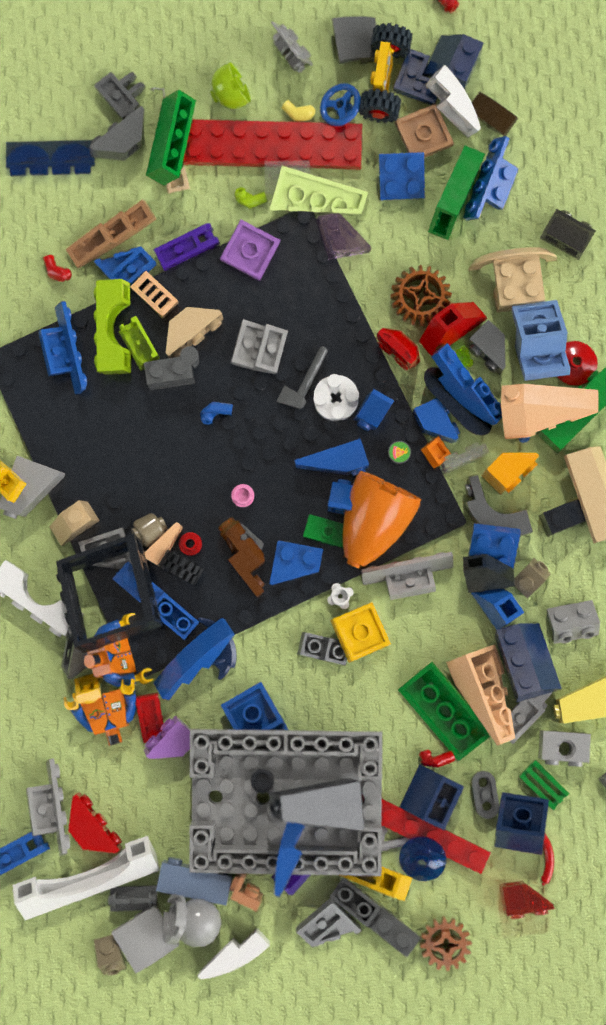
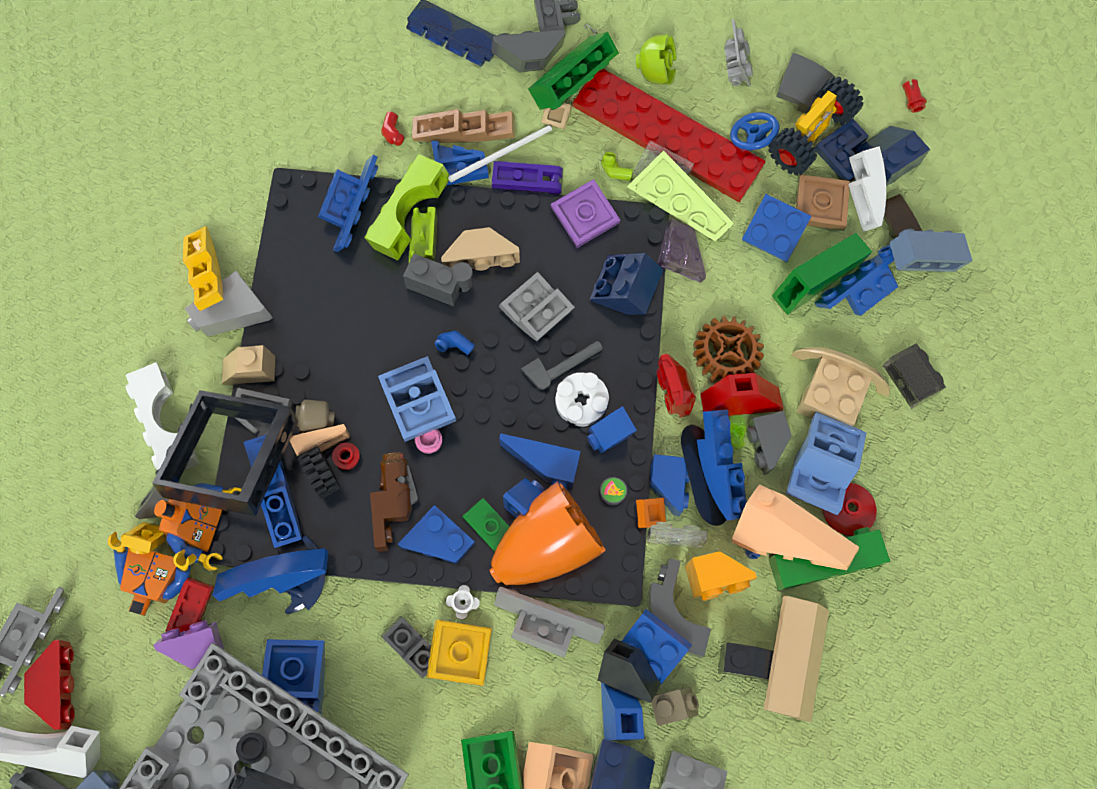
camera: 25 degrees right, 10 degrees down
(154, 240) = (500, 153): none -> white axle
(159, 288) = (473, 219): light nougat slope -> none
(217, 471) = (417, 398): none -> medium blue bracket
(298, 113) = (709, 119): light yellow arm -> none
(316, 288) = (627, 283): none -> dark blue slope
(528, 127) = (930, 251): none -> sand blue brick

